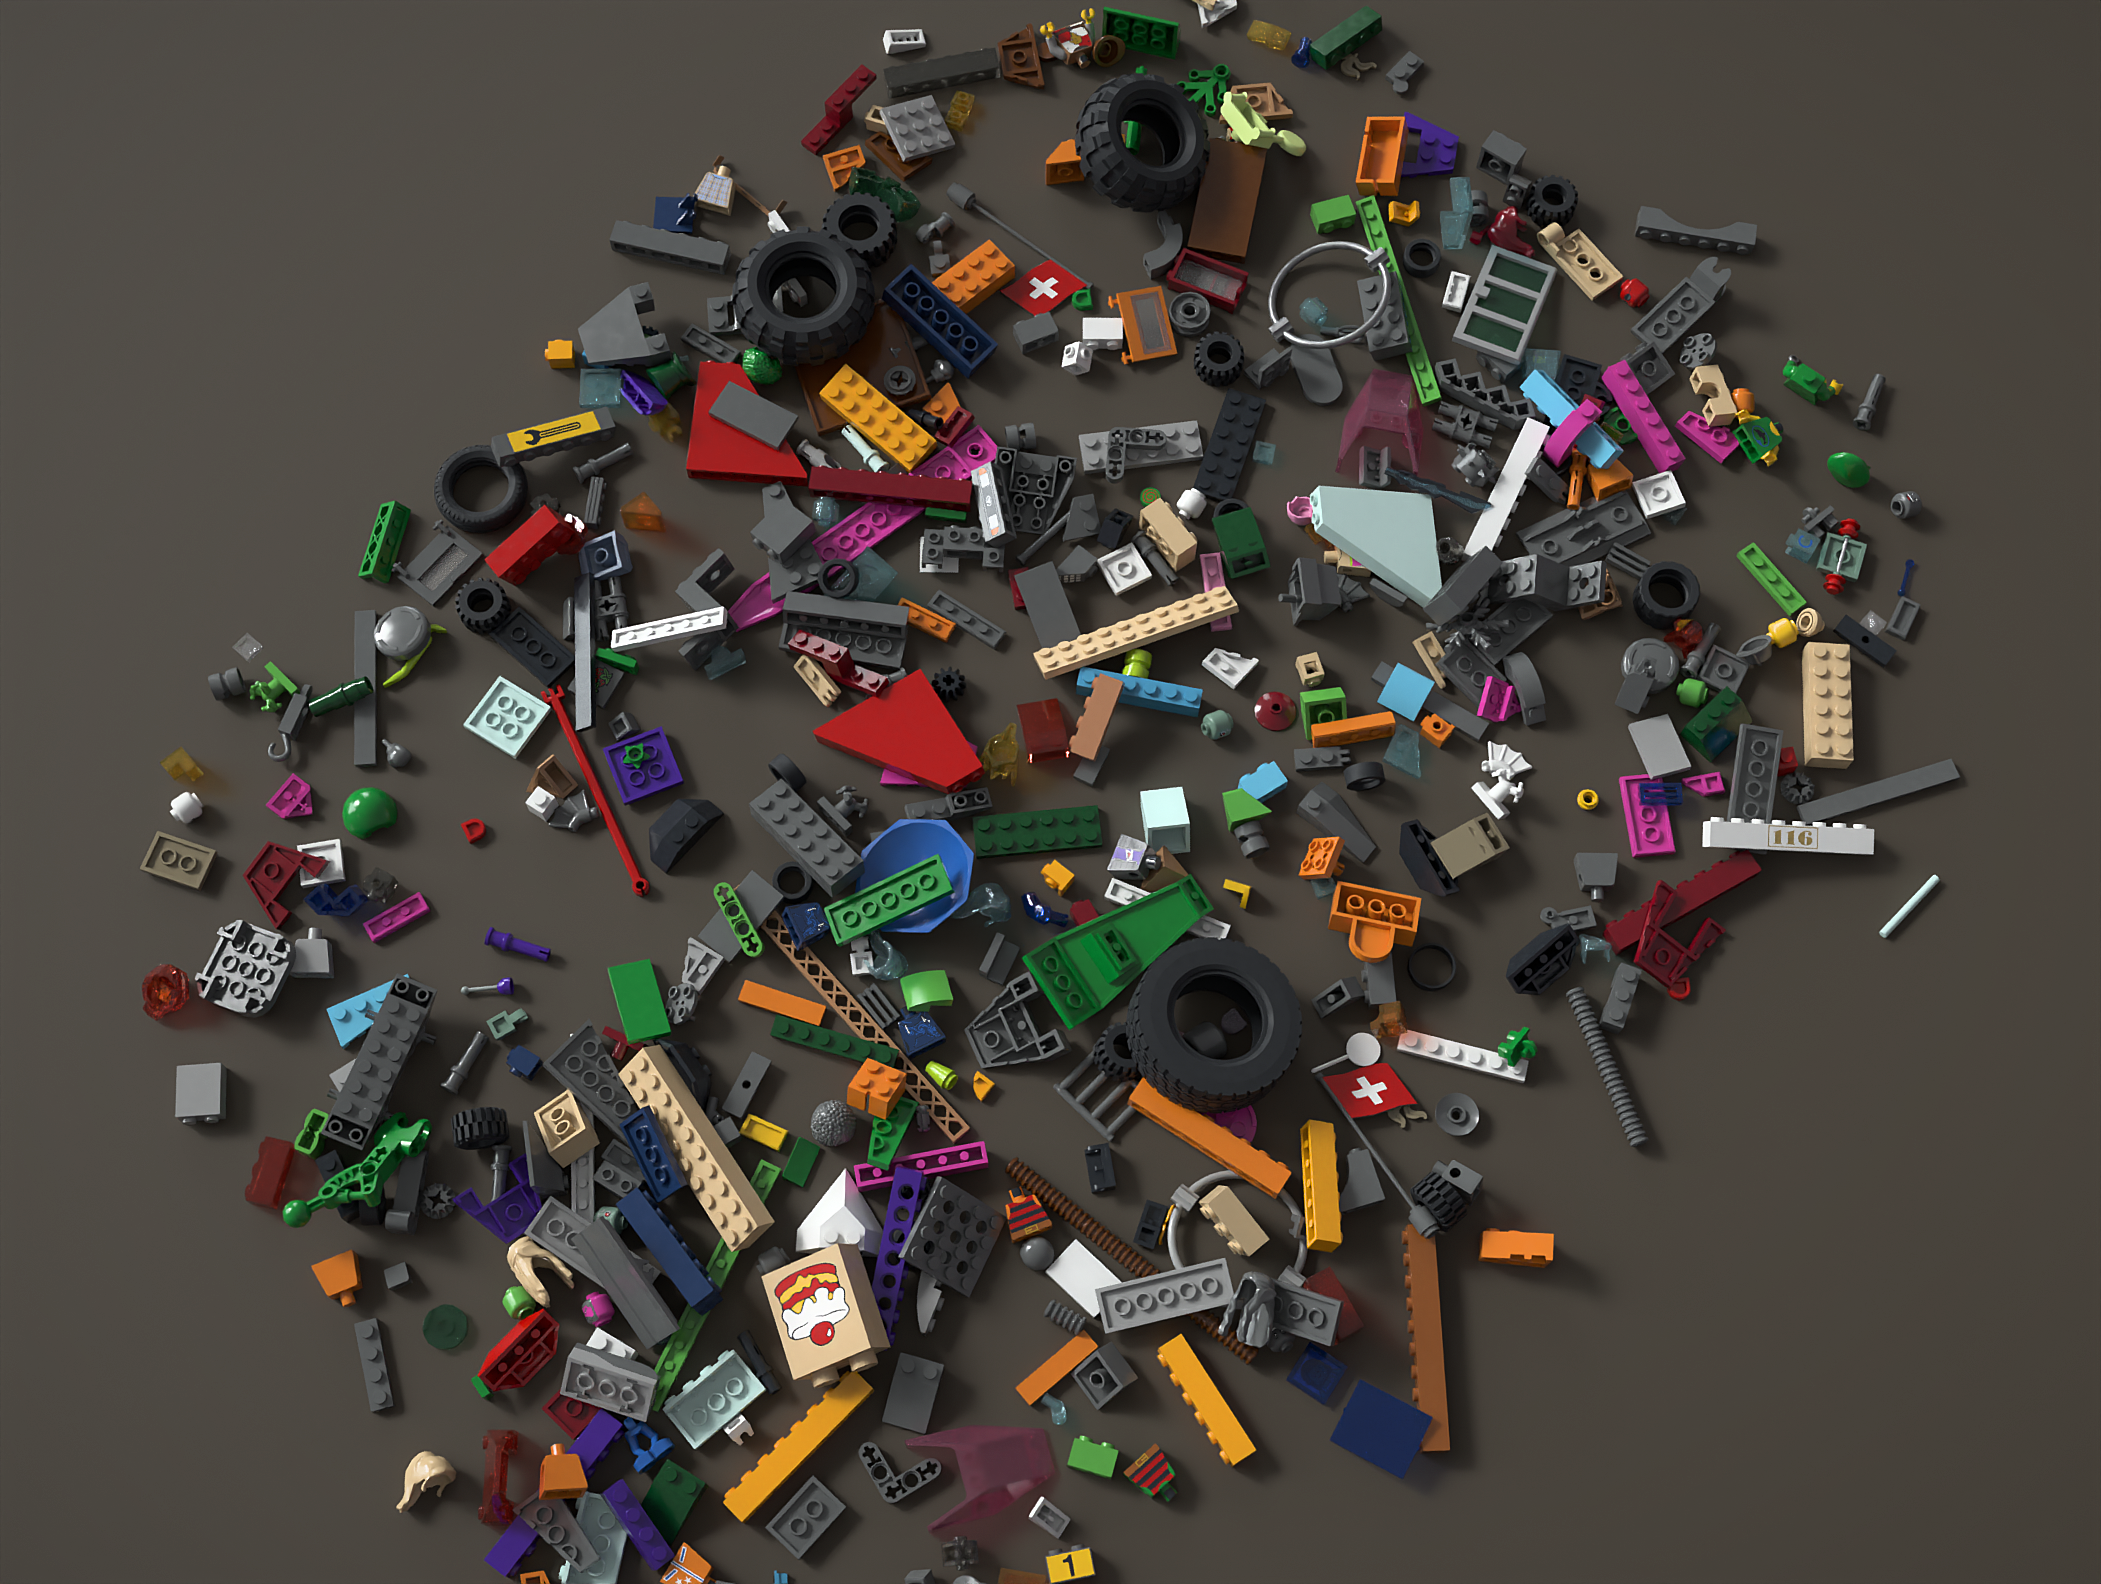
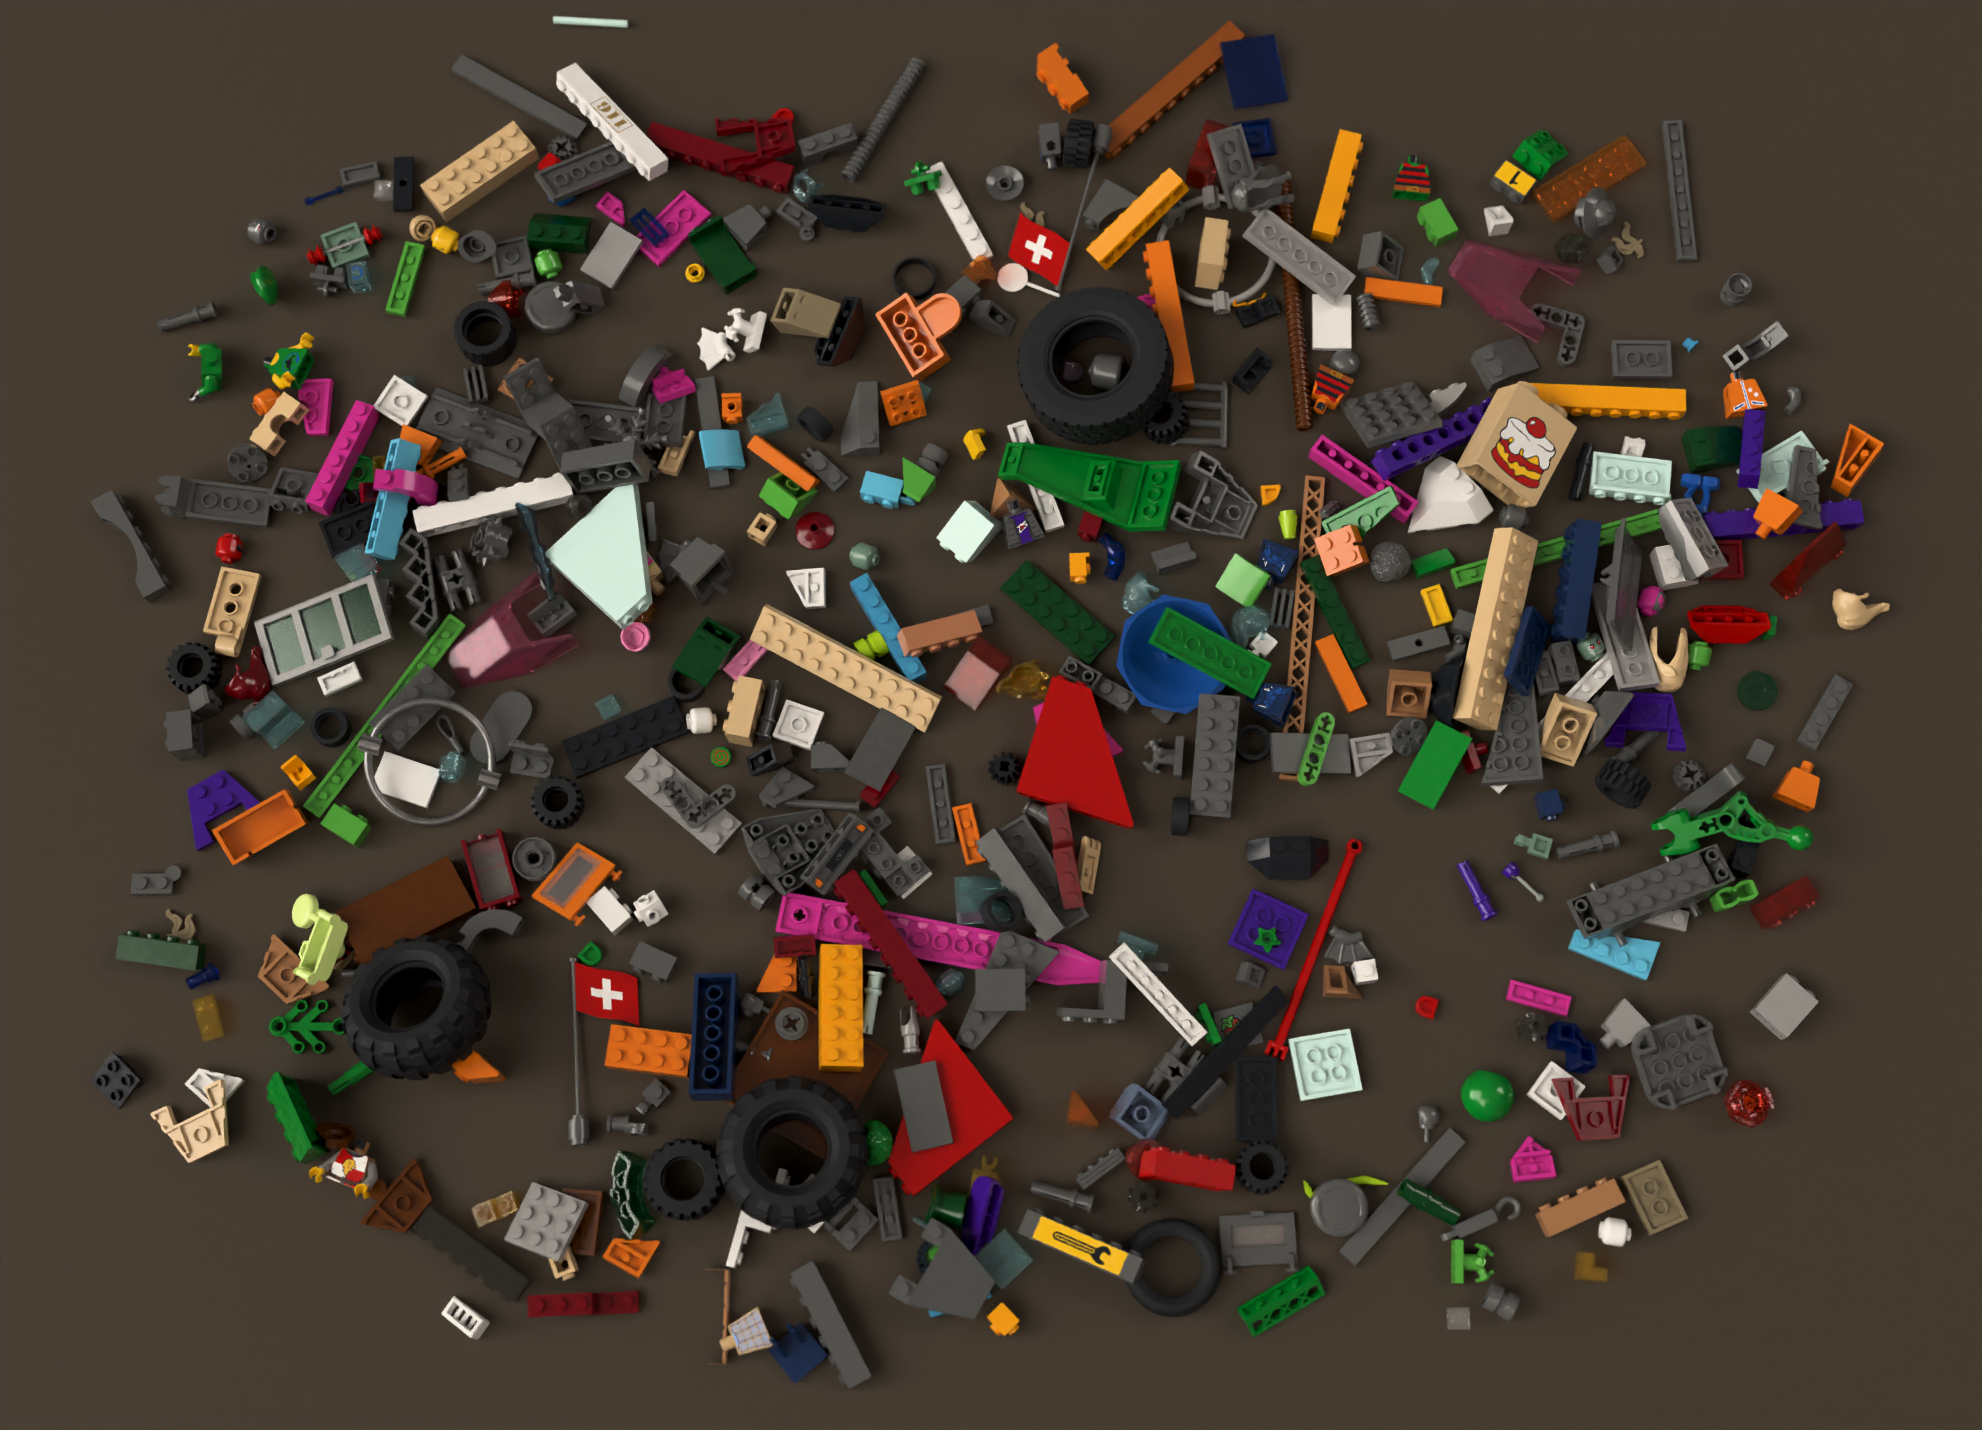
camera: 130 degrees left, 5 degrees up
(228, 800) = (1579, 1207): none -> medium nougat brick
(716, 1038) = (1408, 693): none -> medium nougat slope
(1333, 278) = (406, 779): none -> white tile
(1585, 833) = (722, 255): none -> dark green panel

